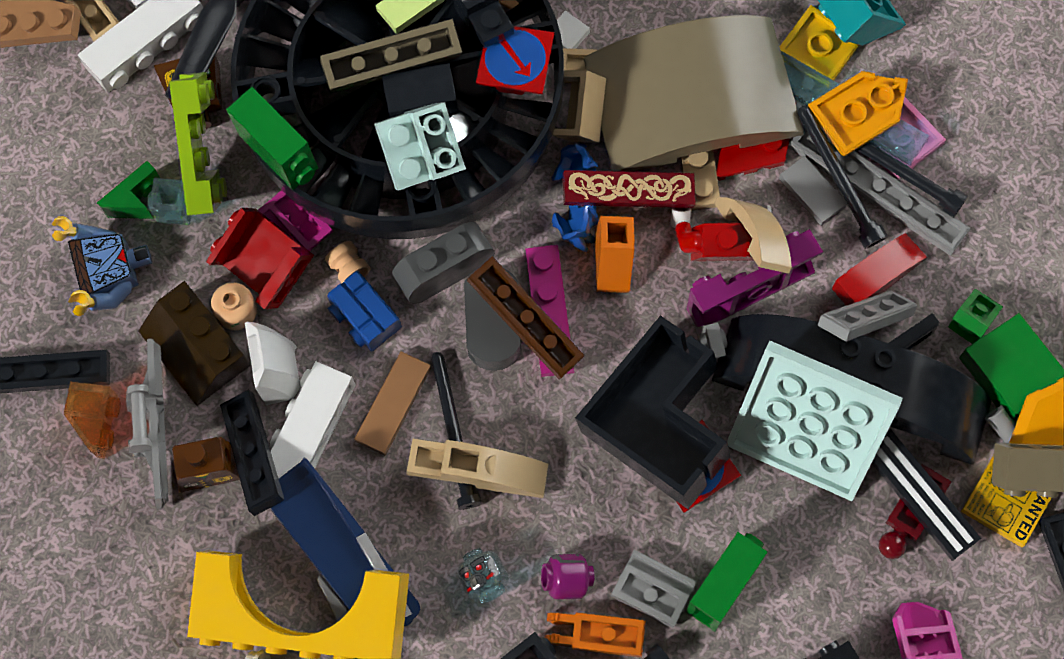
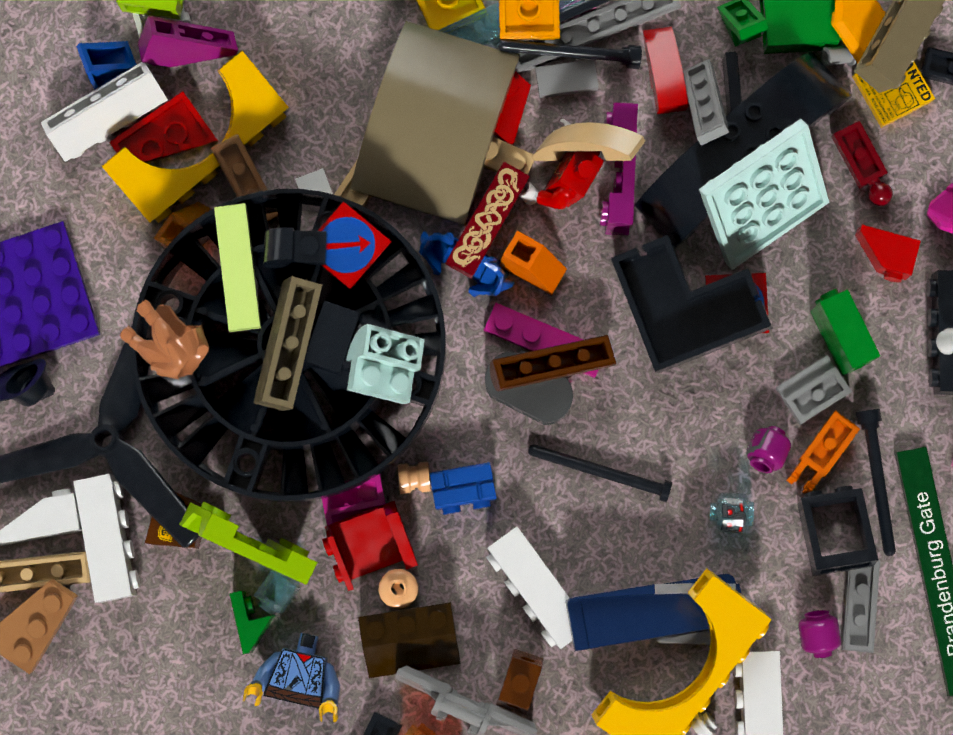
camera: 60 degrees left, 10 degrees up
(251, 453) = (534, 639): black tile -> none
(272, 364) = (467, 581): white slope -> none
(273, 138) = (306, 478): green brick -> none
(392, 403) = (550, 505): medium nougat tile -> none
(442, 262) = (461, 401): dark grey brick -> none
(478, 466) = (645, 469): tan slope -> none
(584, 107) = (398, 213): tan panel -> none
(713, 338) = (646, 230): light grey plate -> none
(838, 586) = (889, 252): none -> red slope
(924, 497) = (867, 148): black tile -> none

